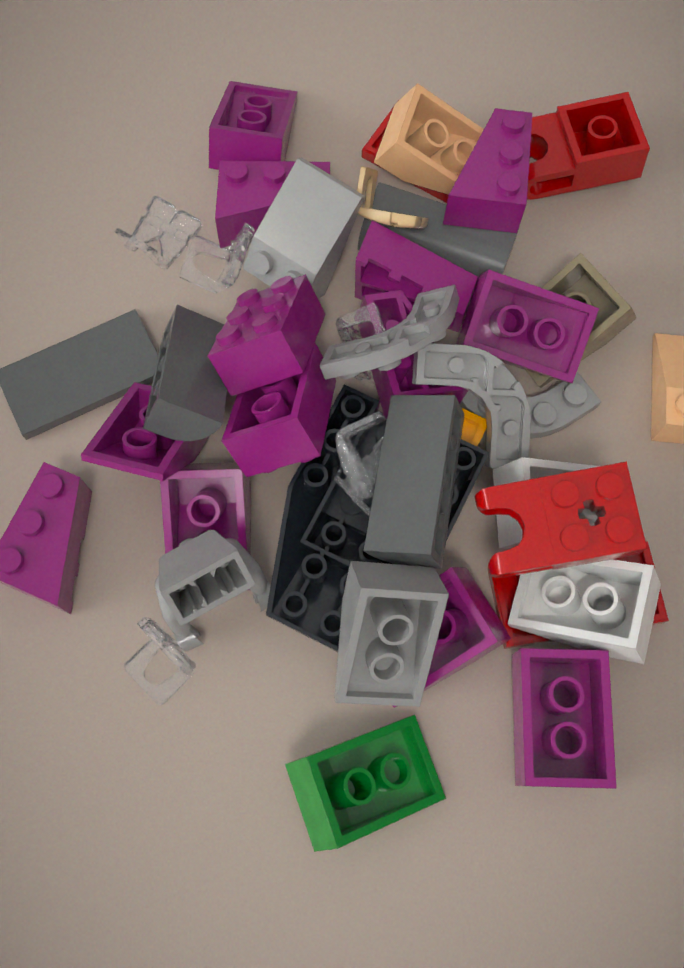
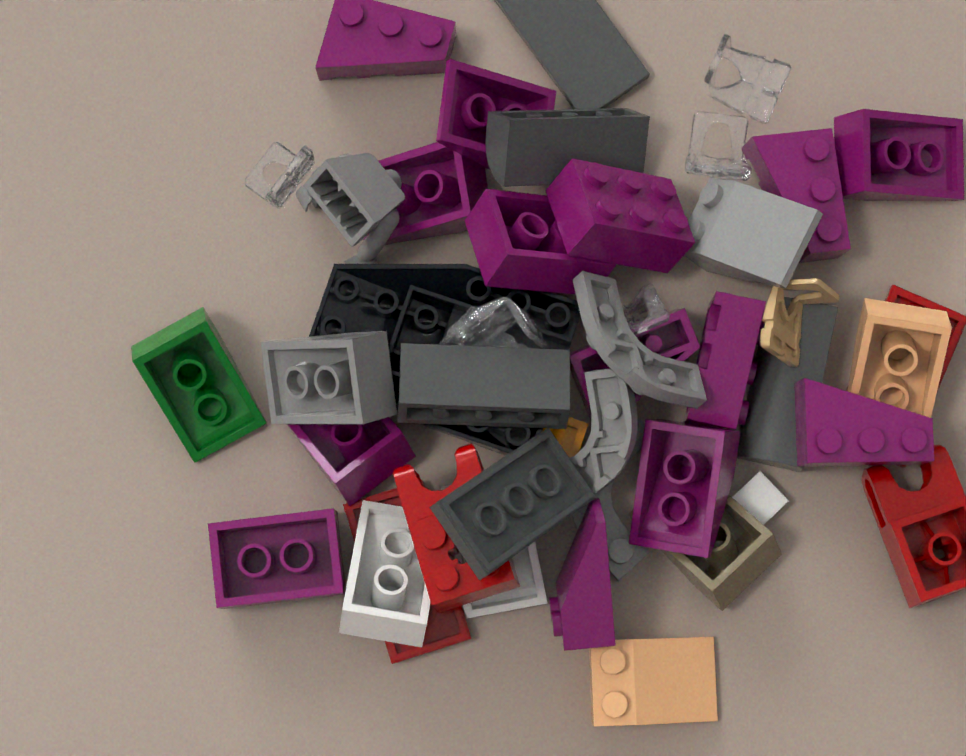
camera: 85 degrees right, 10 degrees up
(535, 272) = (760, 498): none -> white tile
(548, 460) = (512, 503): none -> dark grey tile
(613, 415) = (584, 598): none -> magenta slope

